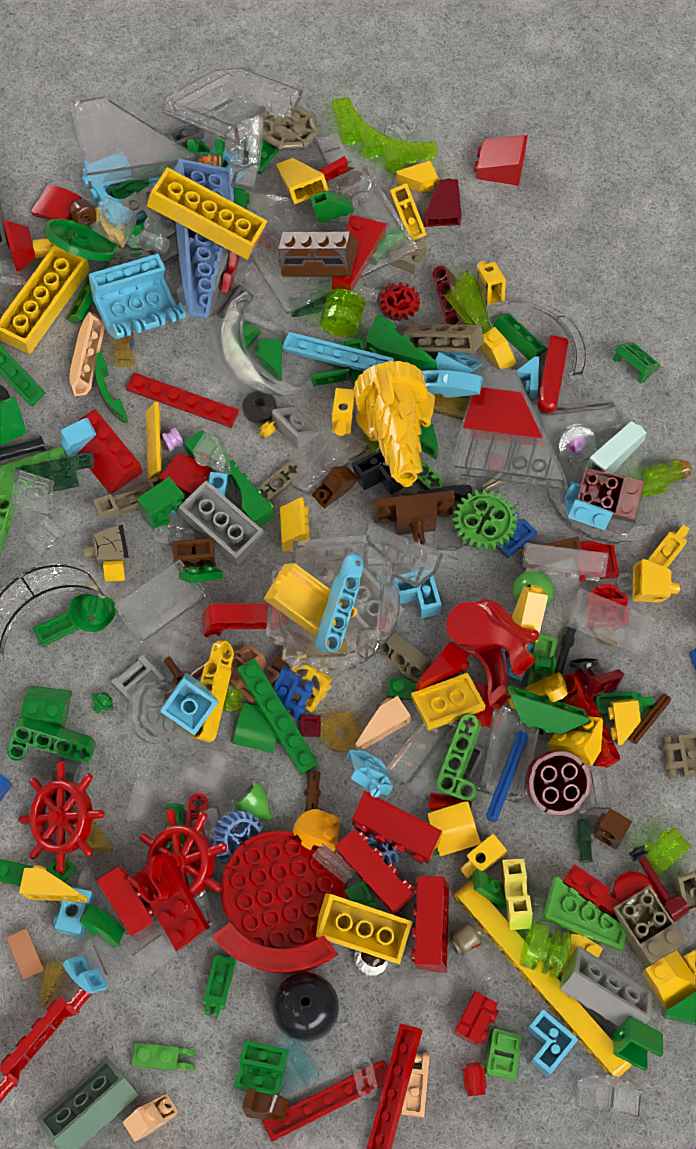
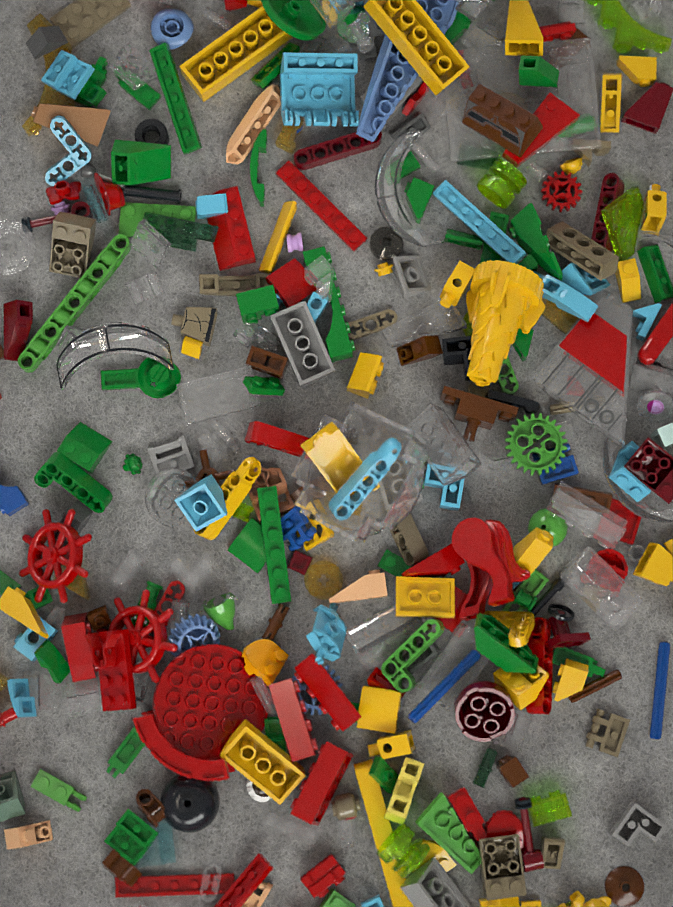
camera: 25 degrees right, 15 degrees up
(132, 860) = (99, 617): none -> reddish brown bracket
(172, 352) = (330, 155): none -> dark red beam
(269, 1029) = (153, 809): none -> reddish brown piece
(399, 276) = (571, 165): none -> yellow piece

